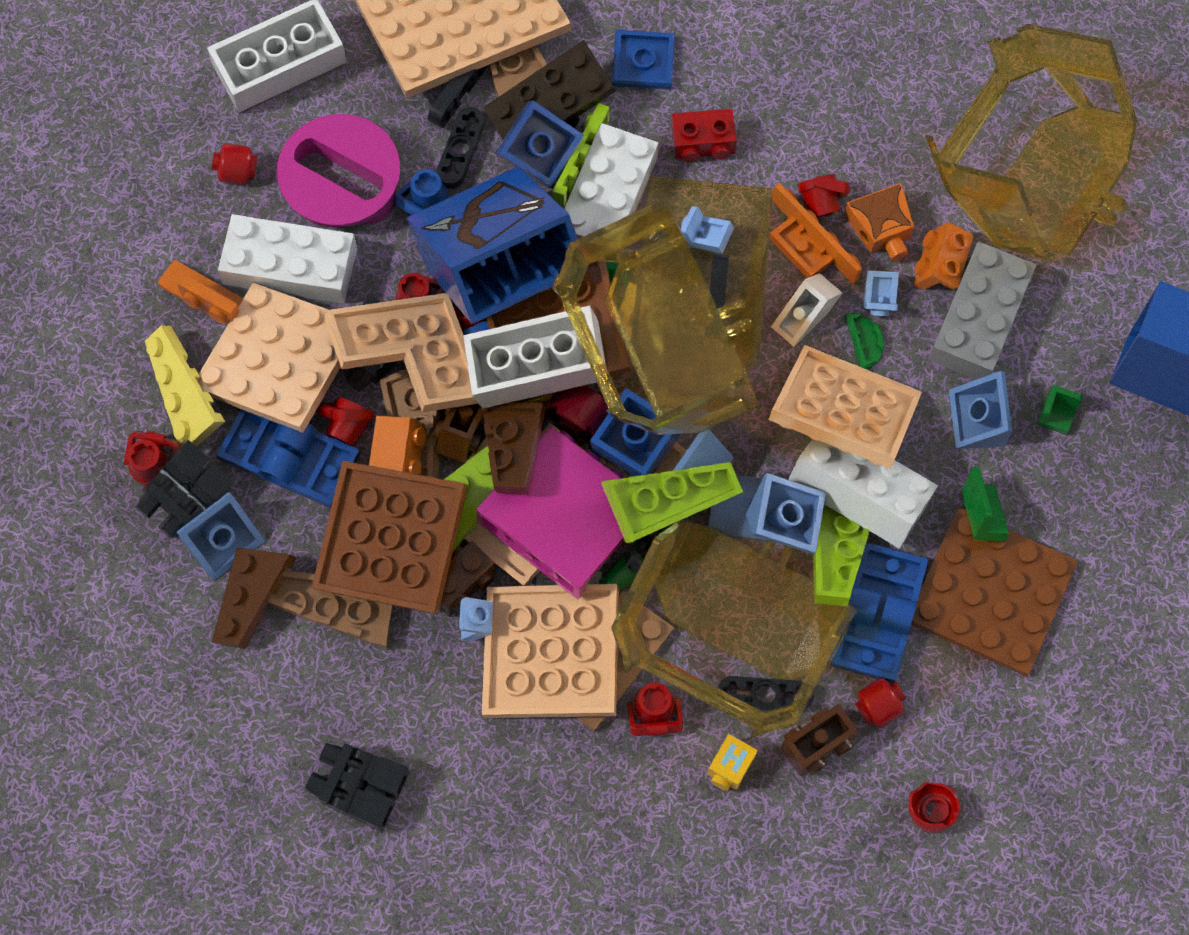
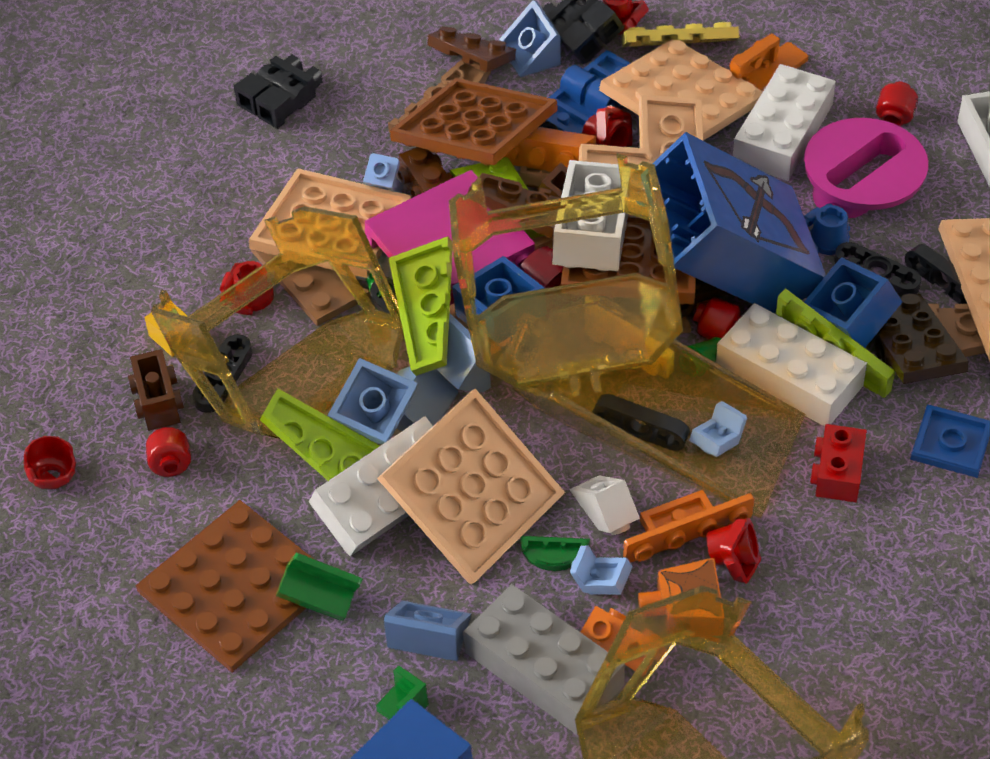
camera: 110 degrees right, 20 degrees down
(885, 602) = (255, 476): blue plate -> none

